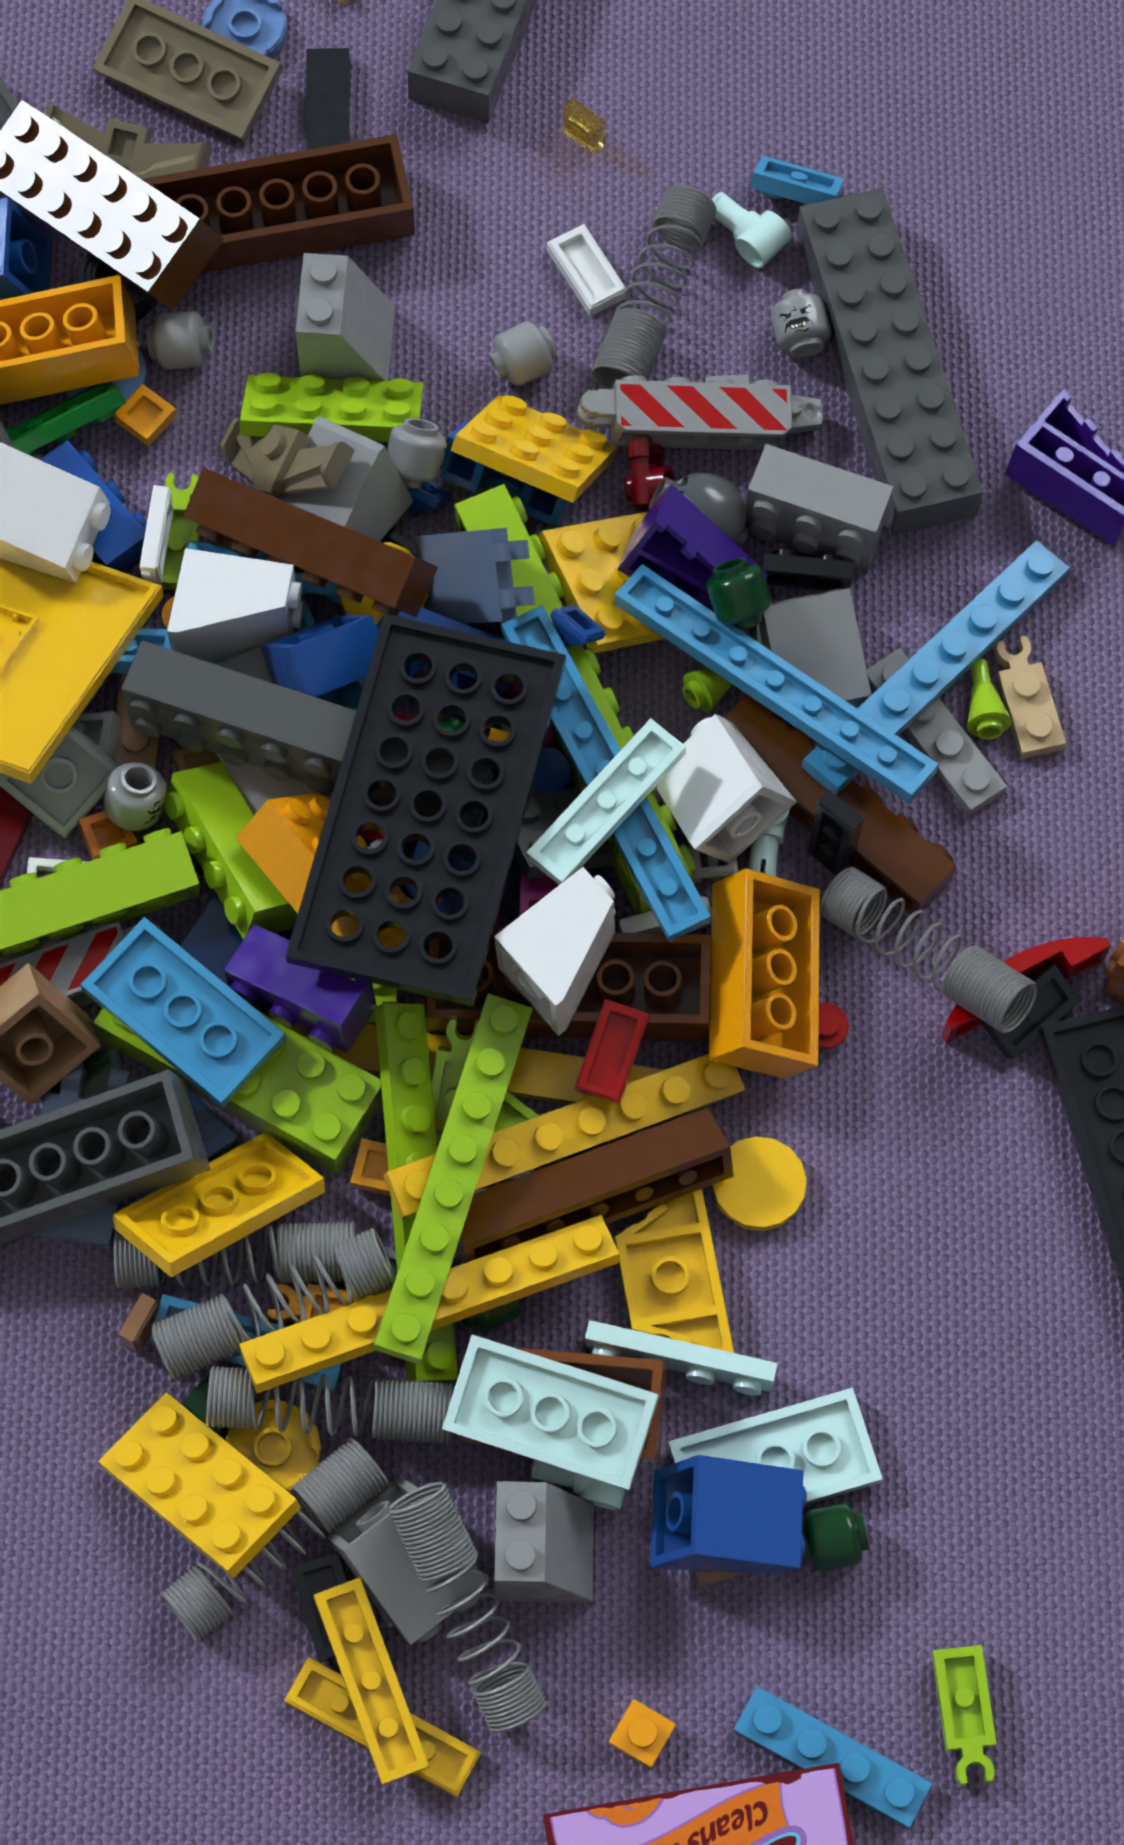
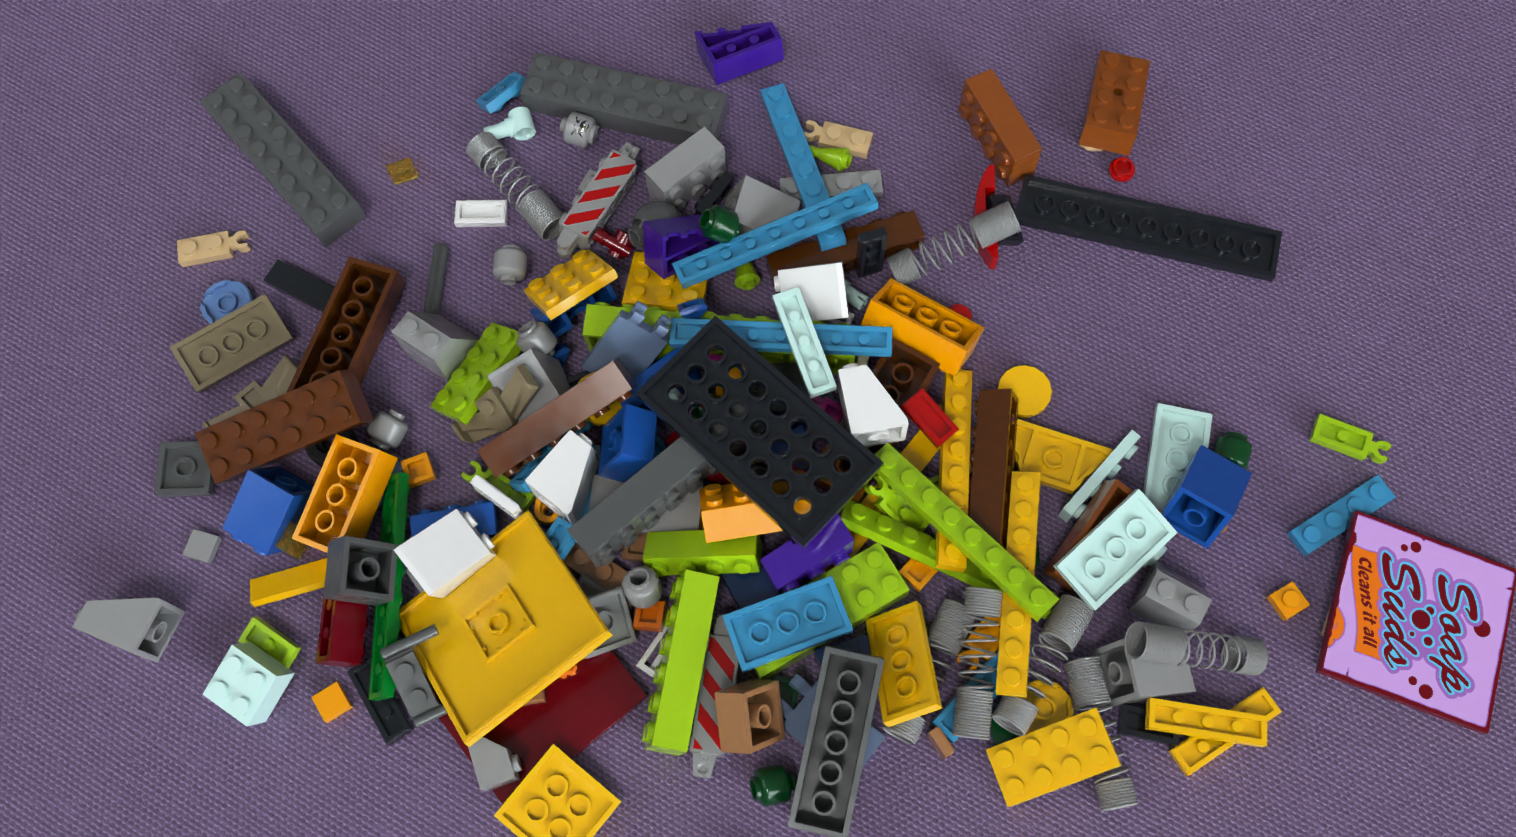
camera: 55 degrees left, 0 degrees up
(445, 270) = (436, 278): none -> dark grey axle

